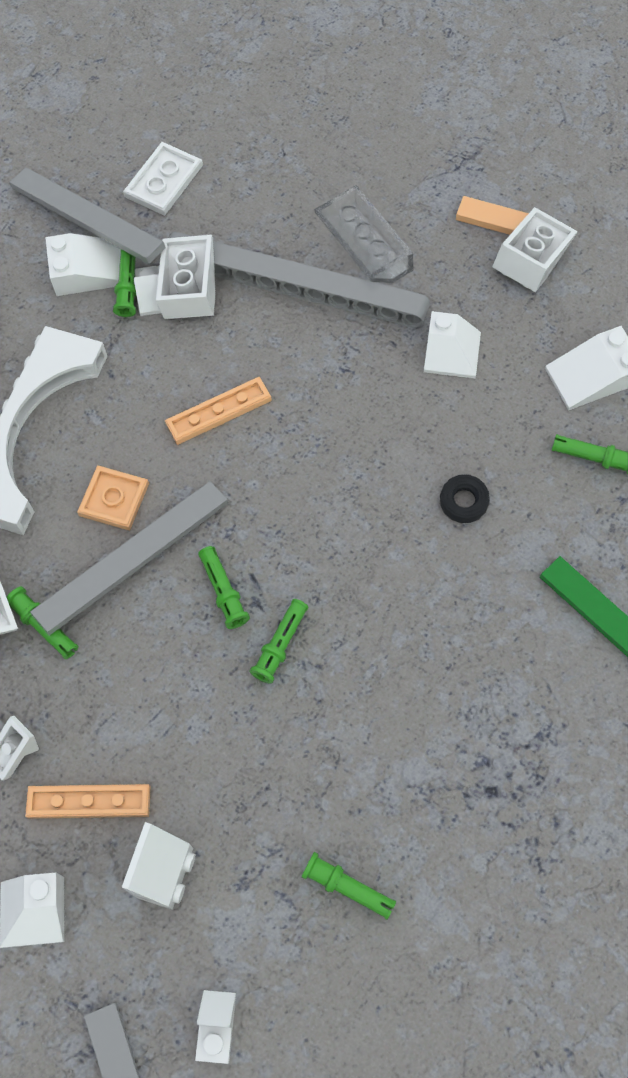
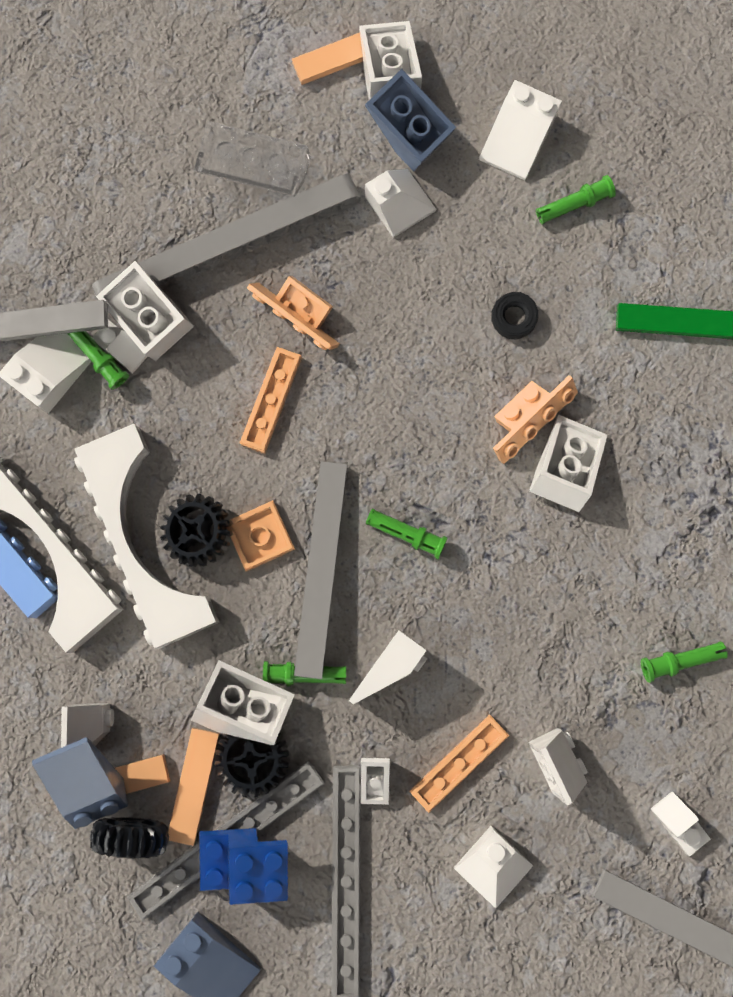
camera: 40 degrees left, 15 degrees up
(70, 451) = (180, 544): none -> black gear
(108, 668) = (394, 663): none -> white slope
(163, 178) = (32, 239): white tile -> none
(276, 654) = (487, 546): bright green pin -> none
(302, 363) = (300, 307): none -> light nougat bracket
(400, 642) = (569, 464): none -> white slope
(405, 581) = (529, 413): none -> light nougat bracket
(509, 294) = (409, 119): none -> sand blue slope

